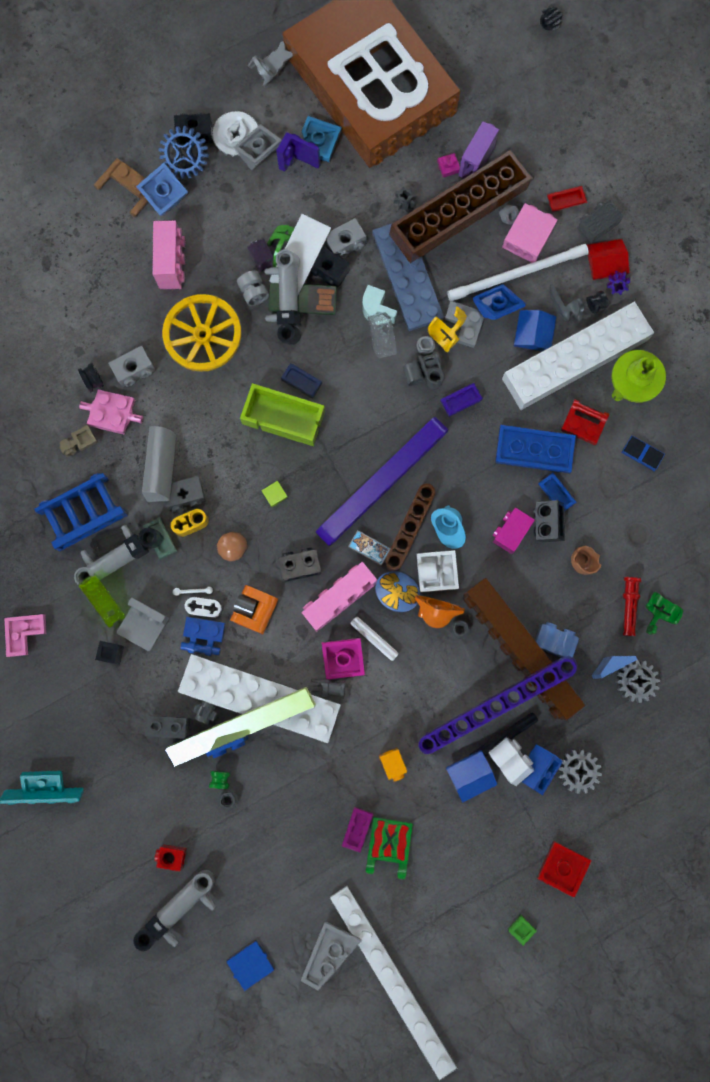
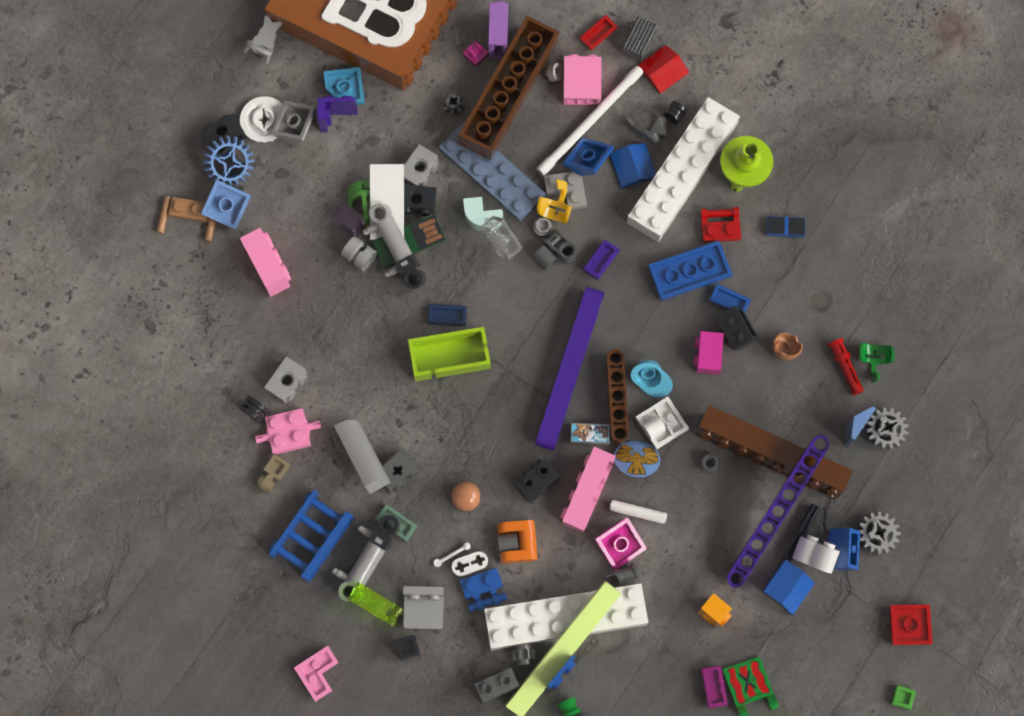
camera: 30 degrees left, 5 degrees down
(187, 529) = (409, 494): yellow beam -> none
(201, 329) = (329, 315): yellow wheel -> none
(274, 494) = (478, 429): lime tile -> none
(437, 612) = (681, 459): orange hat -> none
(556, 641) = (798, 430): medium blue brick -> none
(618, 278) = (684, 86): dark purple gear -> none

